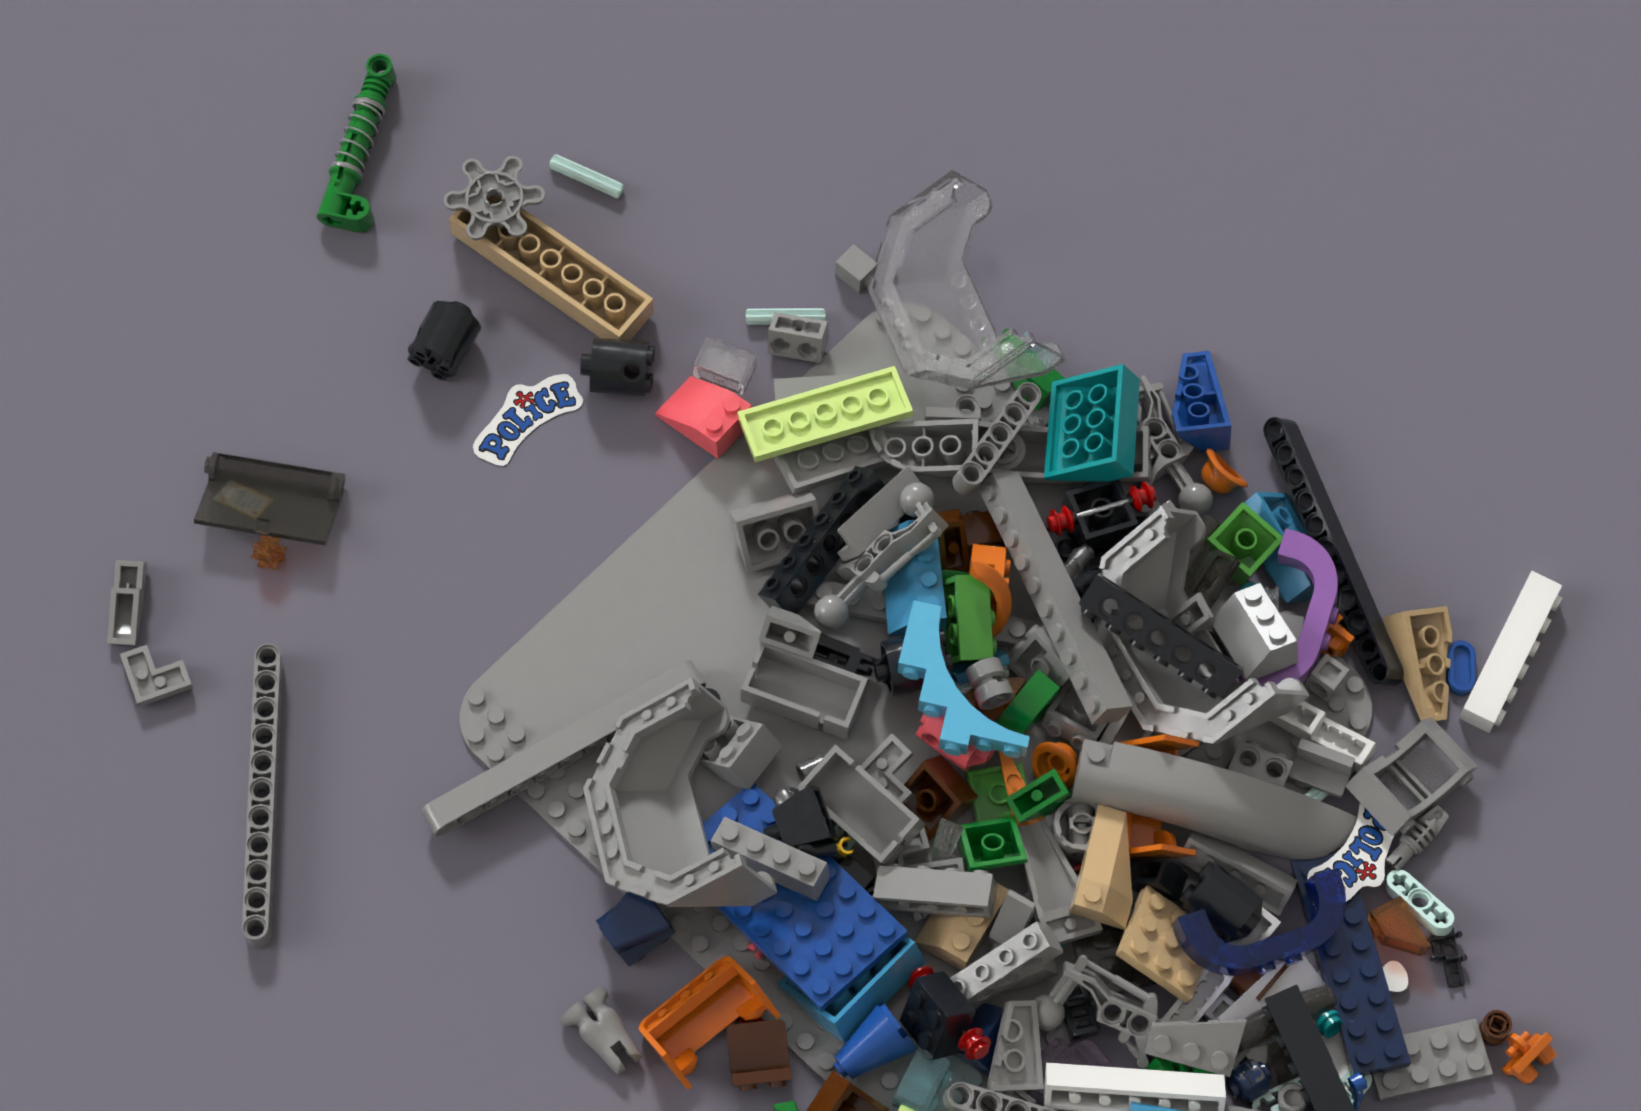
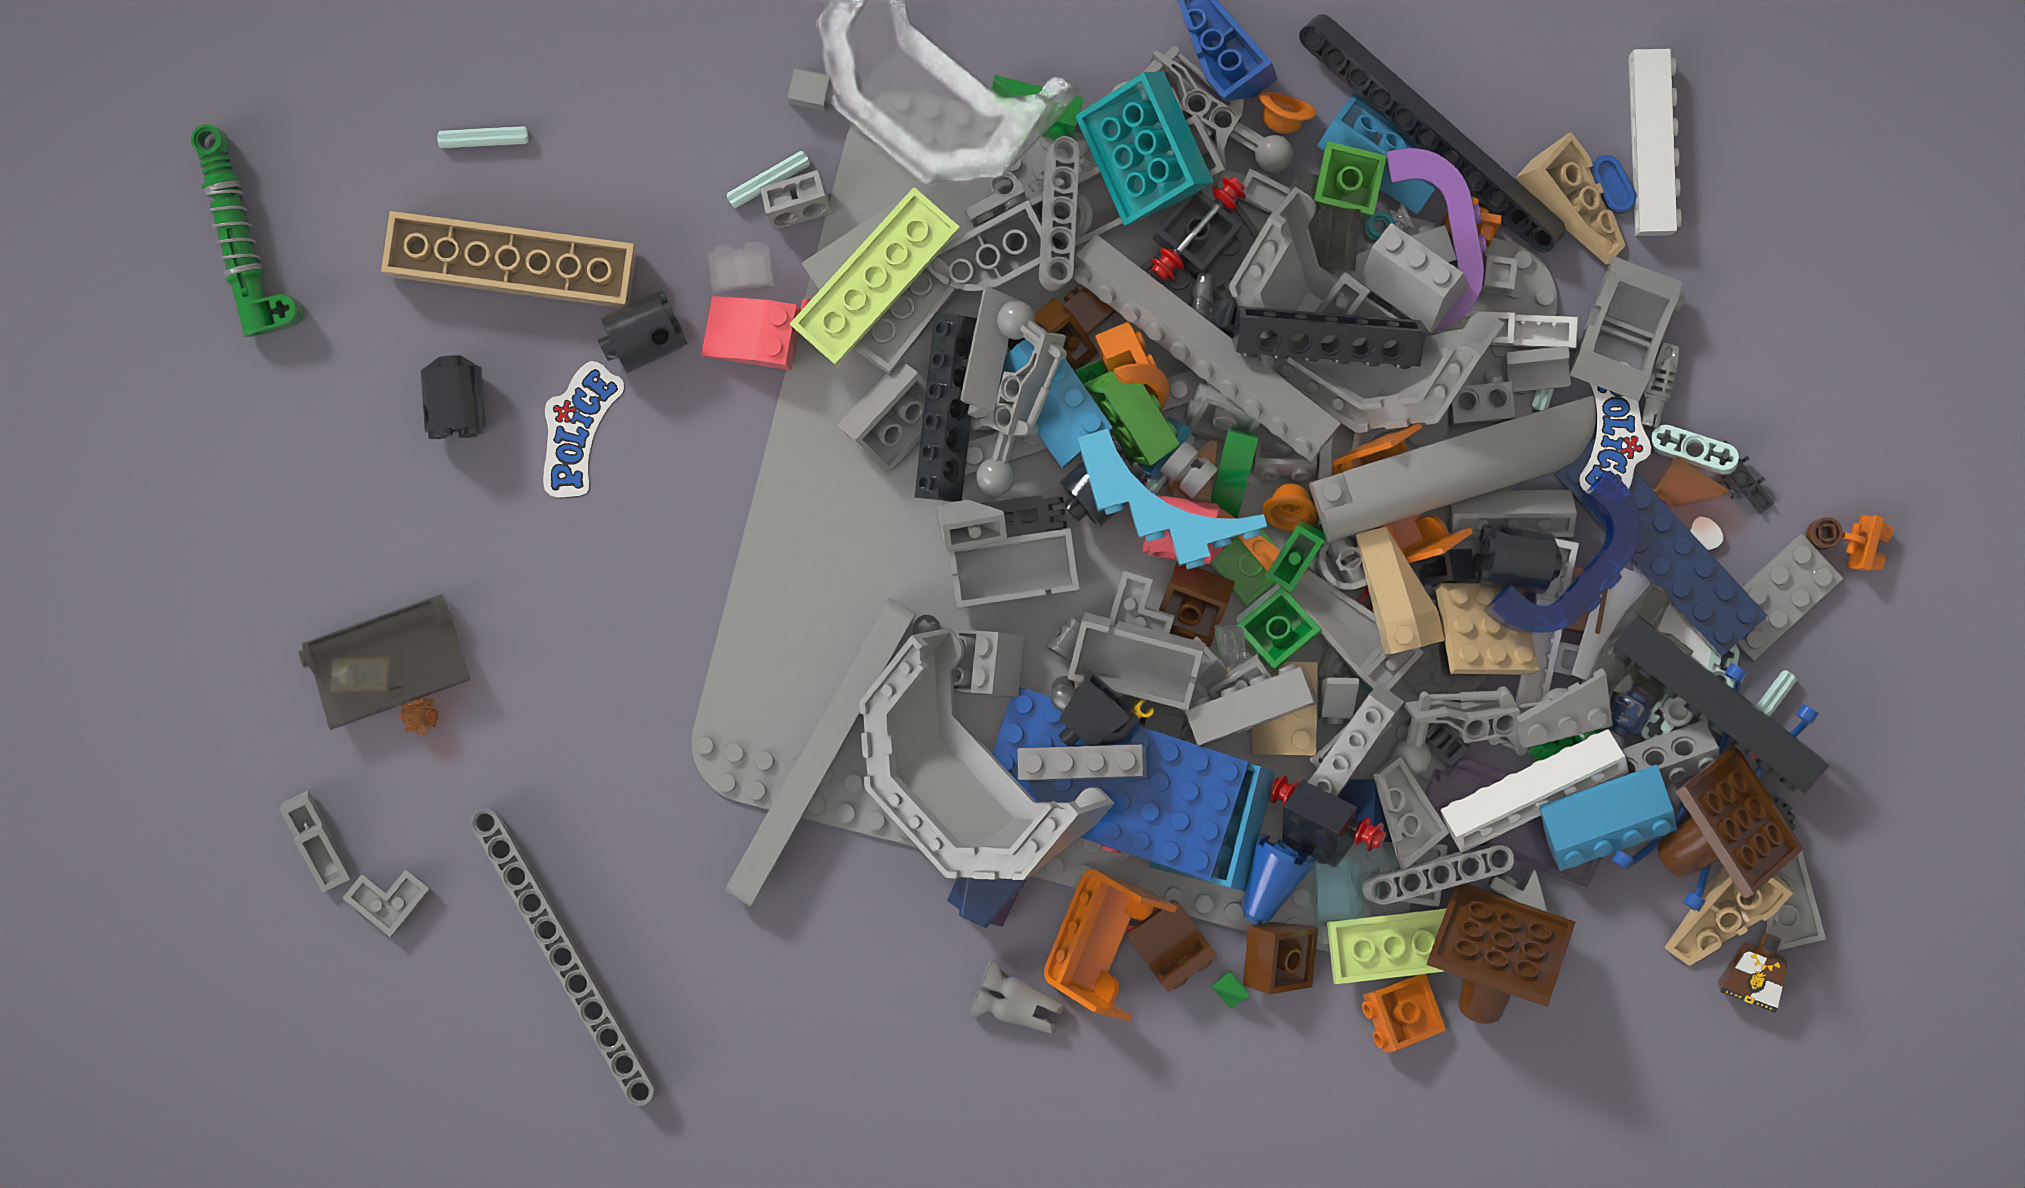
camera: 30 degrees left, 20 degrees up
(498, 182) = (410, 206): light grey plate -> none
(1329, 1023) = (1673, 619): teal plate -> none

